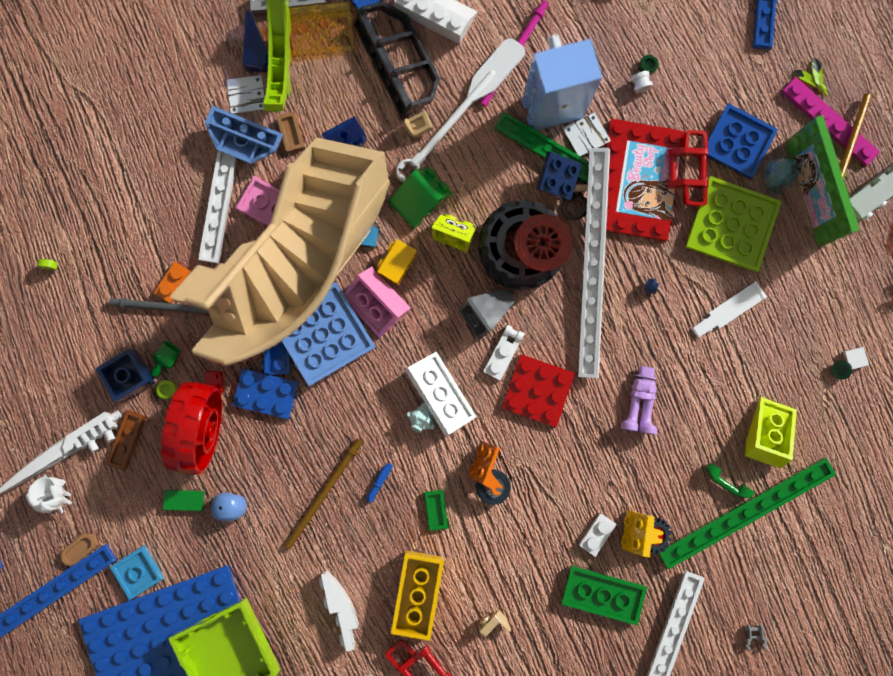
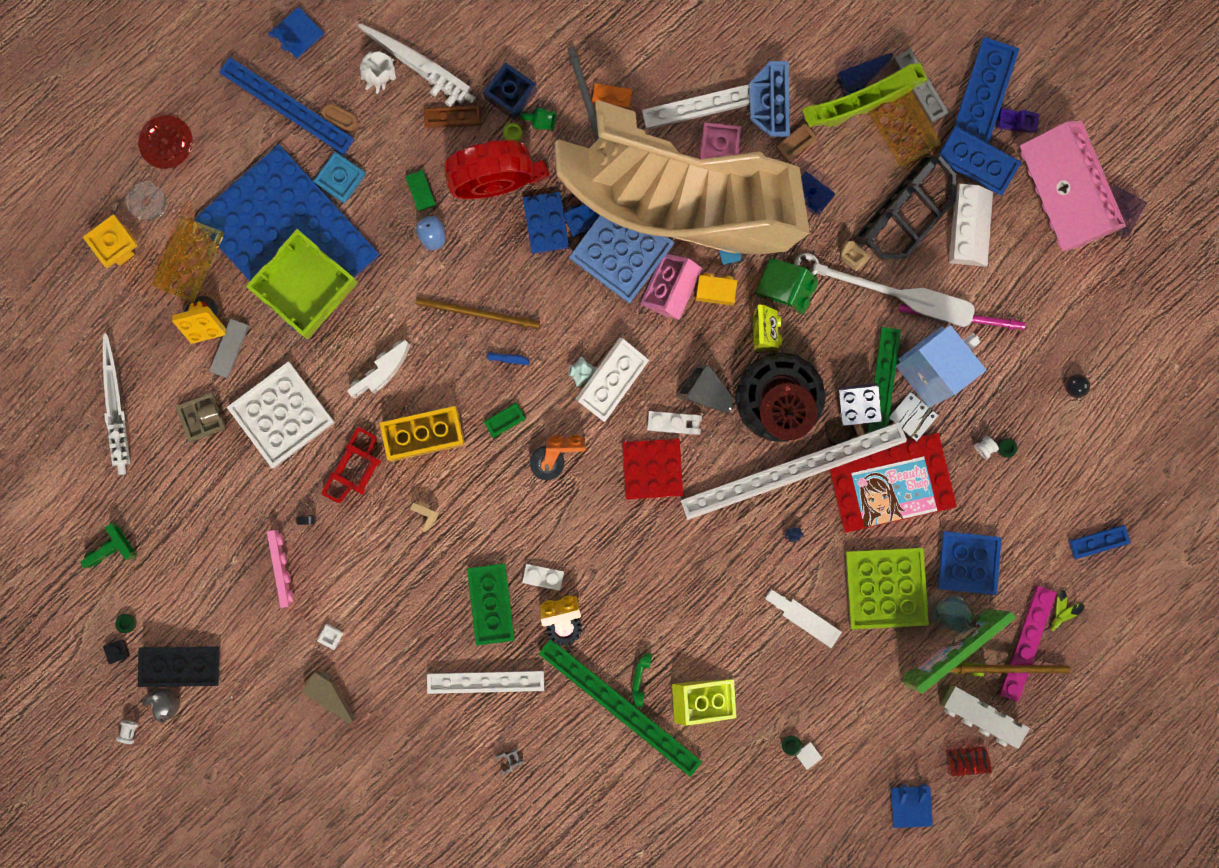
camera: 70 degrees right, 0 degrees up
(245, 94) = (814, 86): white sticker -> none
(642, 389) = (694, 567): lavender piece -> none
(685, 184) = (904, 525): red bar -> none

